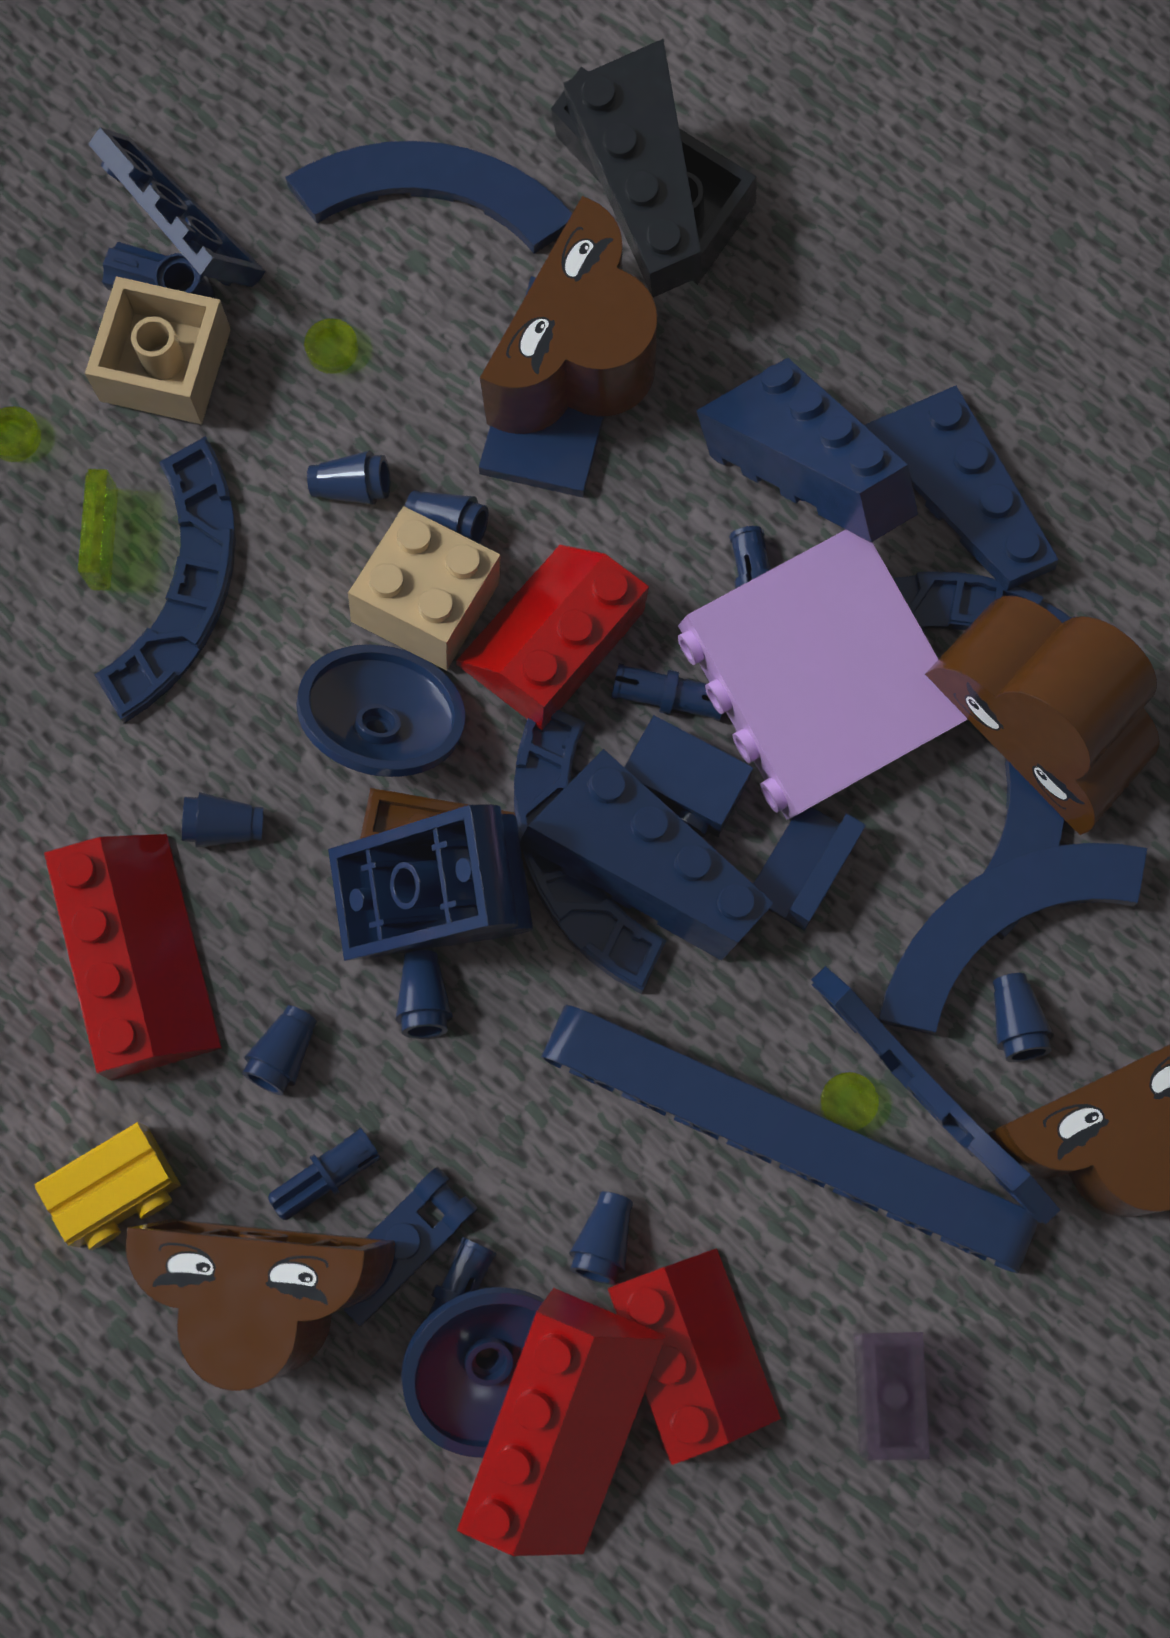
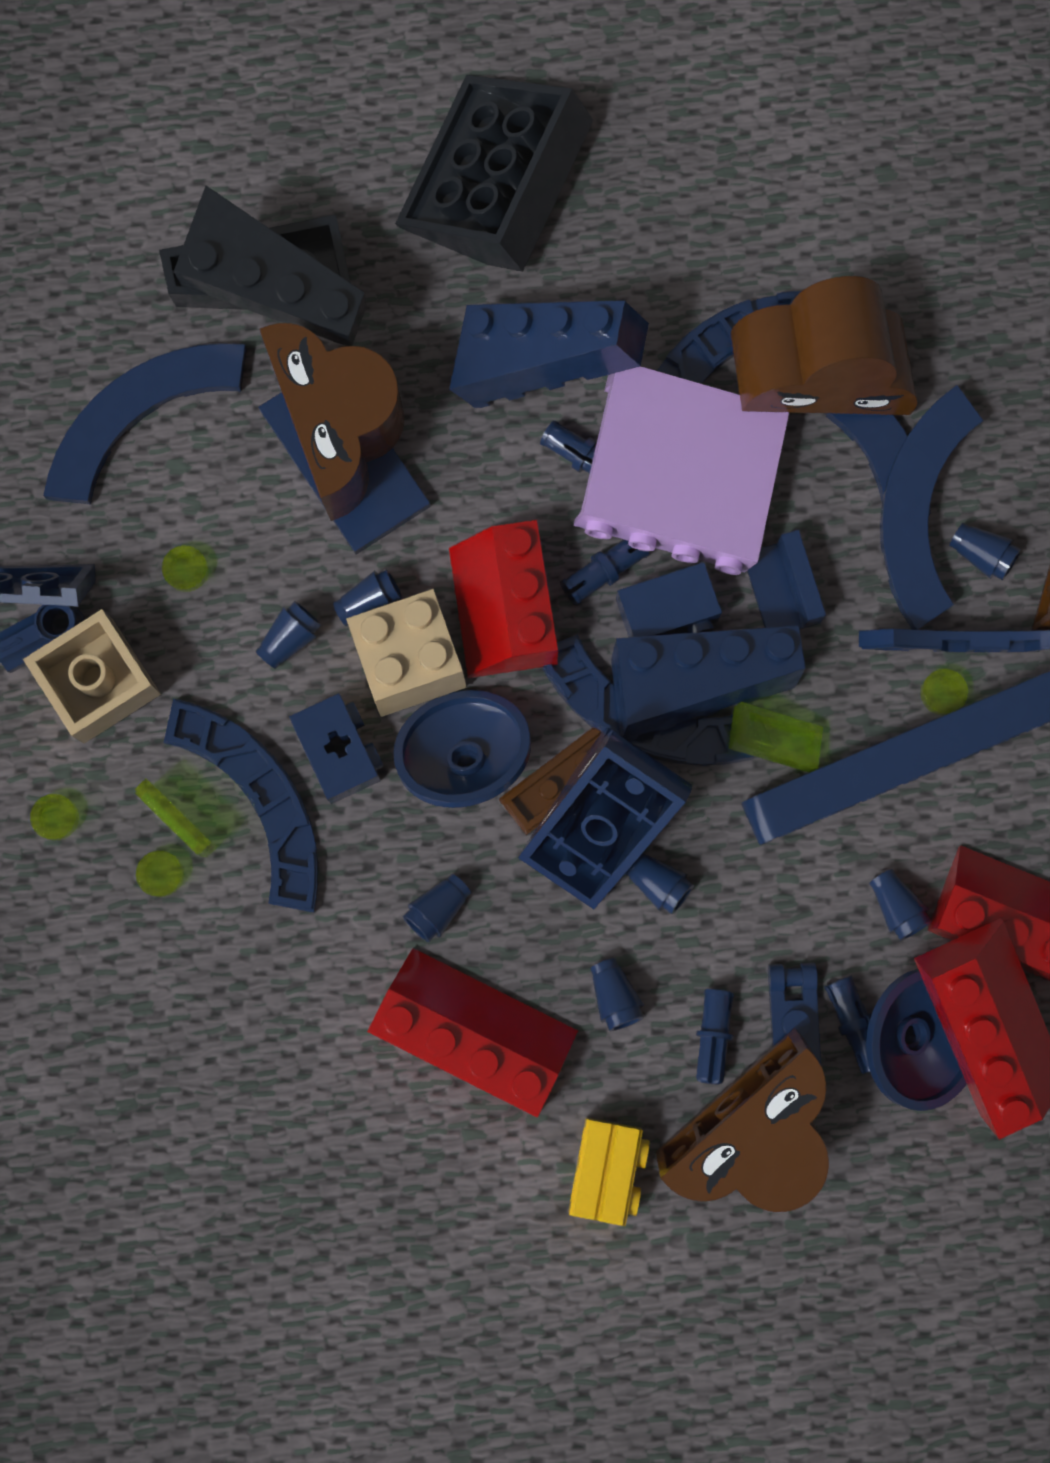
camera: 50 degrees left, 5 degrees up
(40, 563) = (159, 873): none -> clear neon green tile
(281, 578) = (317, 728): none -> dark blue brick
(655, 981) = (776, 737): none -> clear neon green tile
(942, 280) = (496, 169): none -> black slope
(967, 485) = (645, 276): dark blue wing -> none

